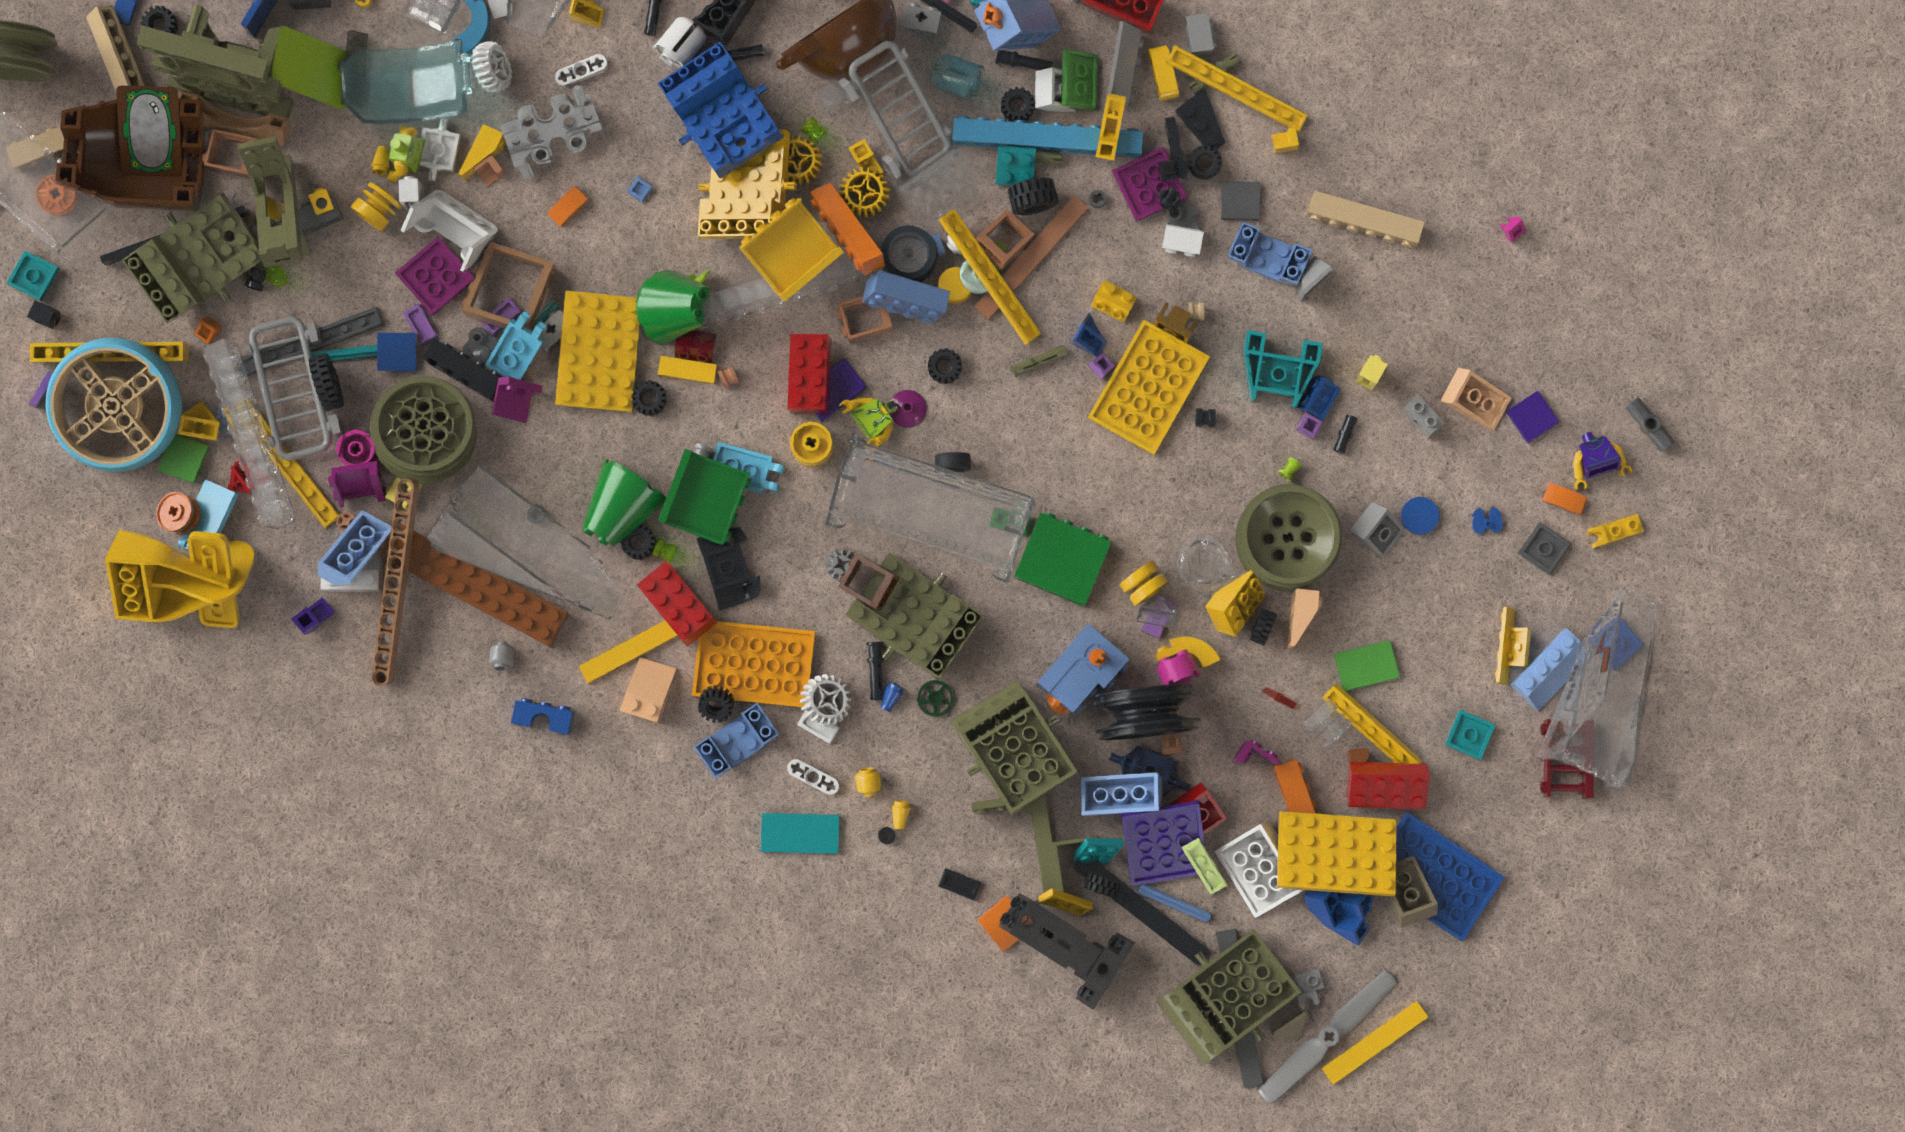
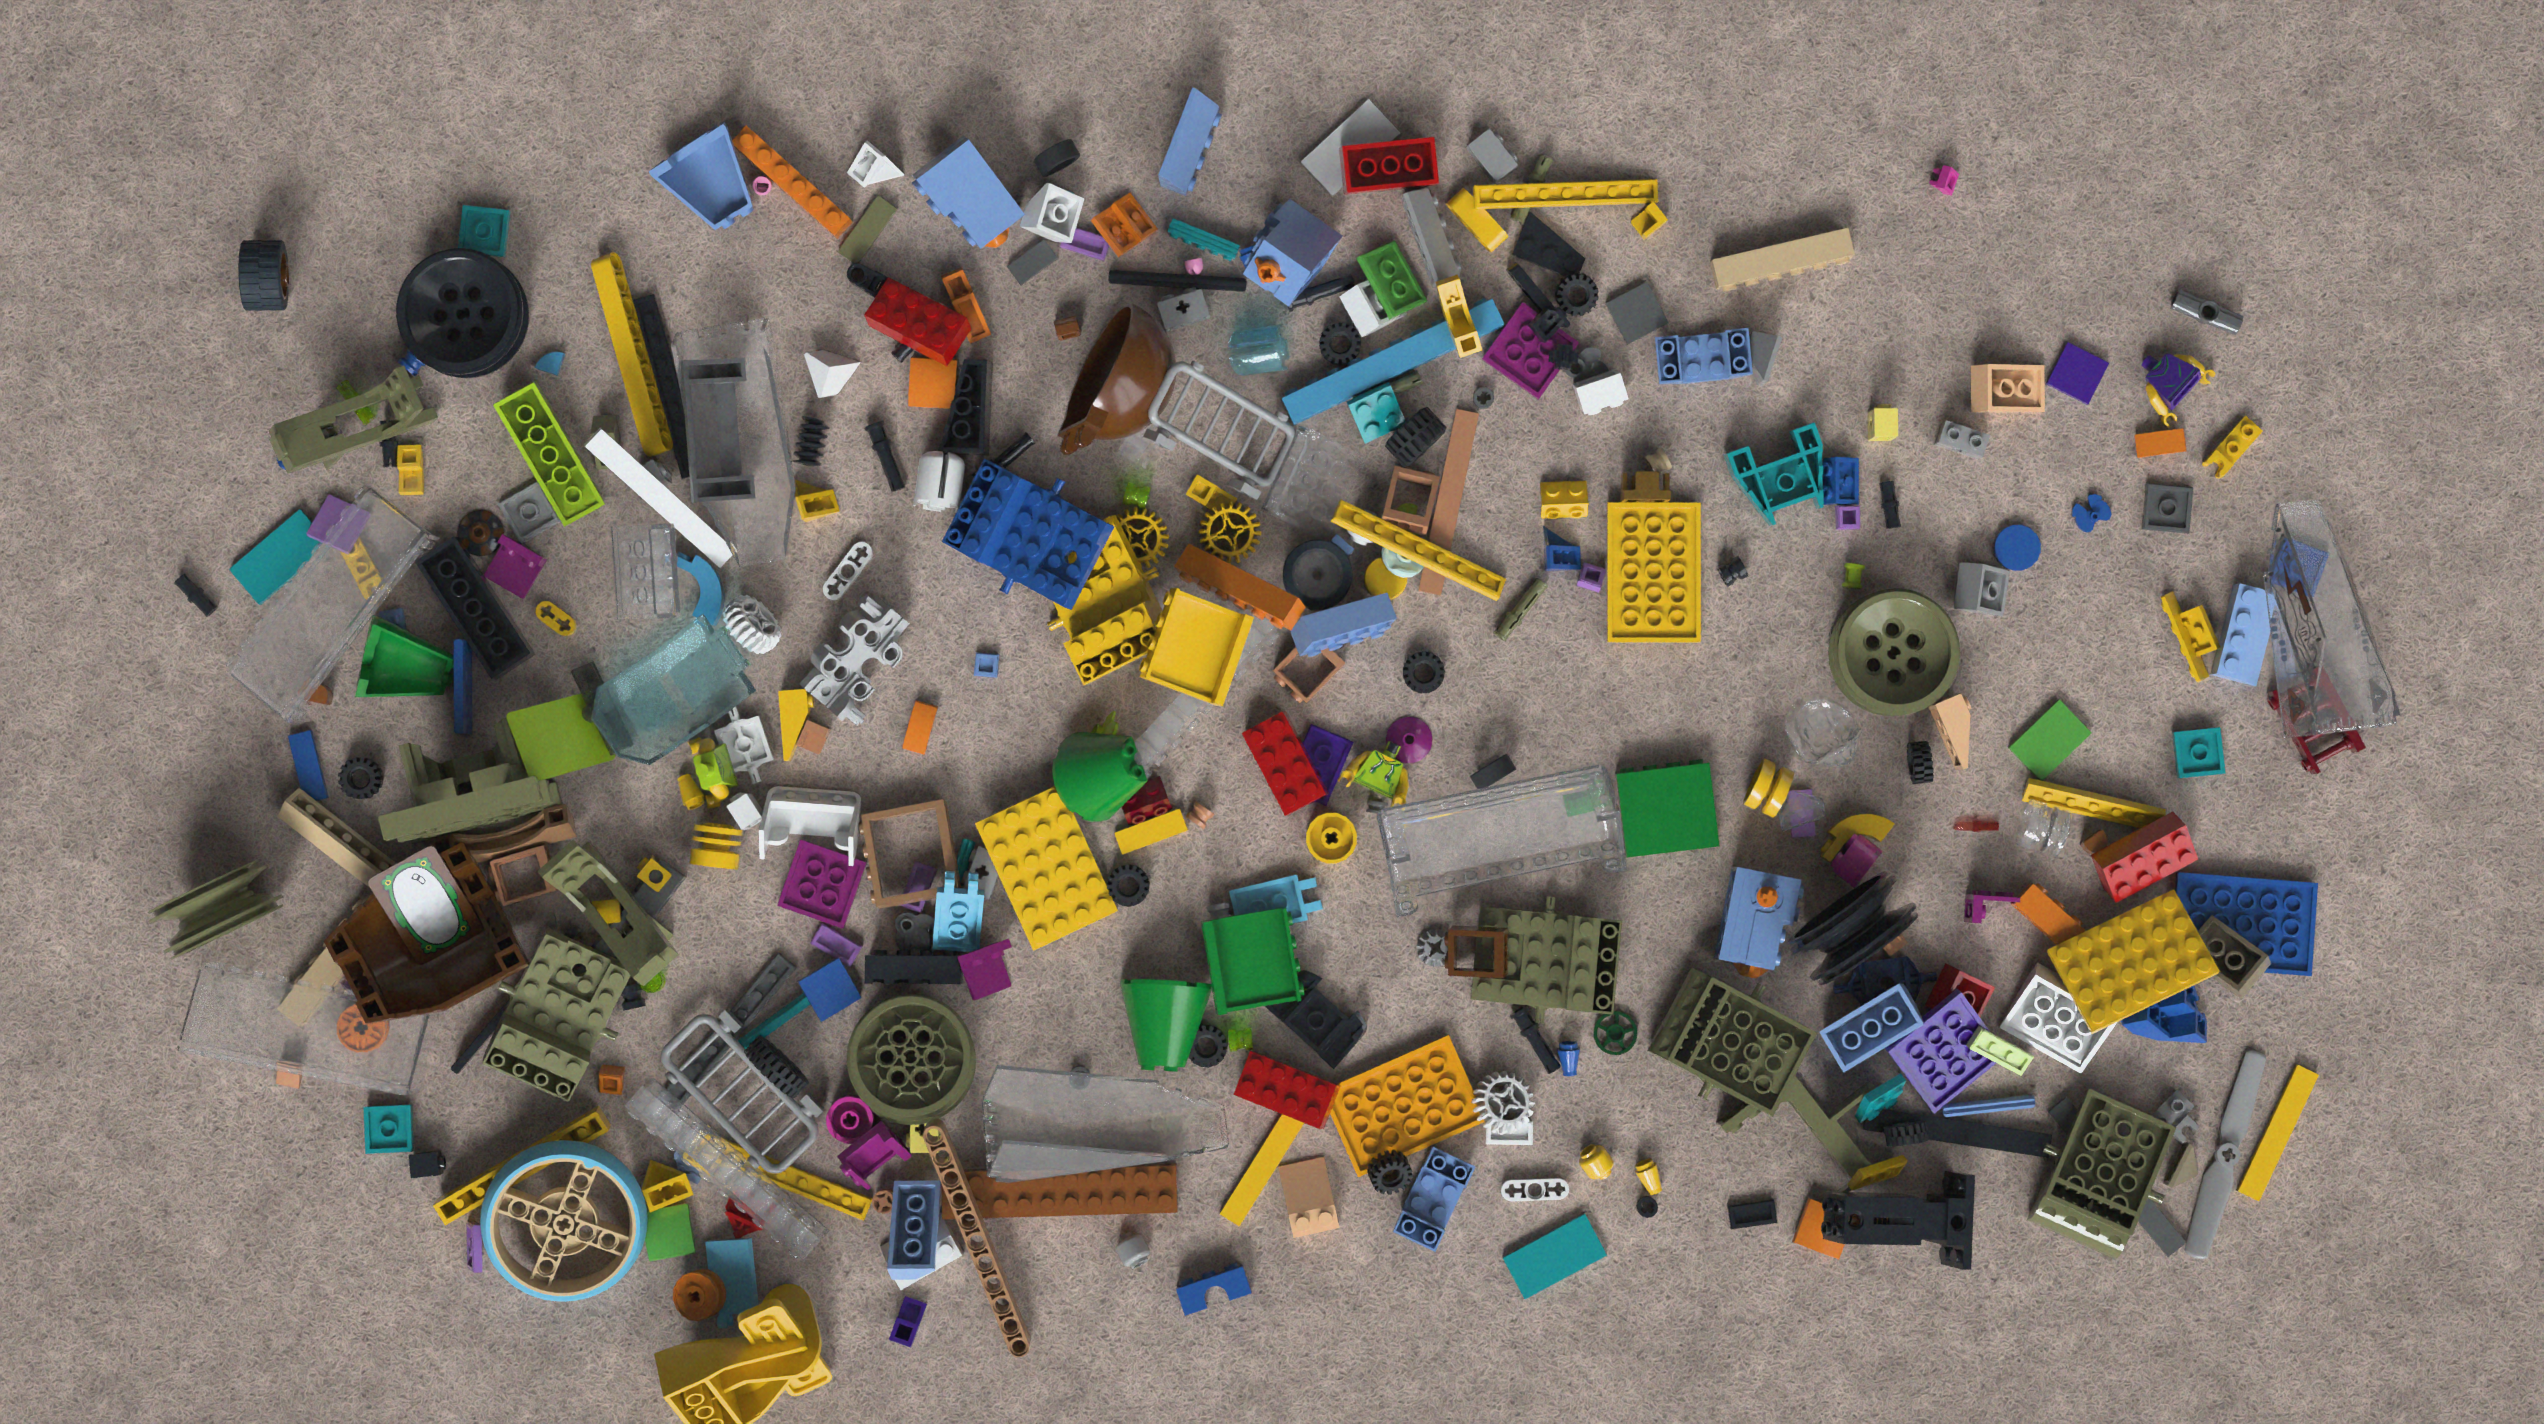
camera: 30 degrees left, 5 degrees up
(1235, 603) = (1877, 755): yellow slope -> none

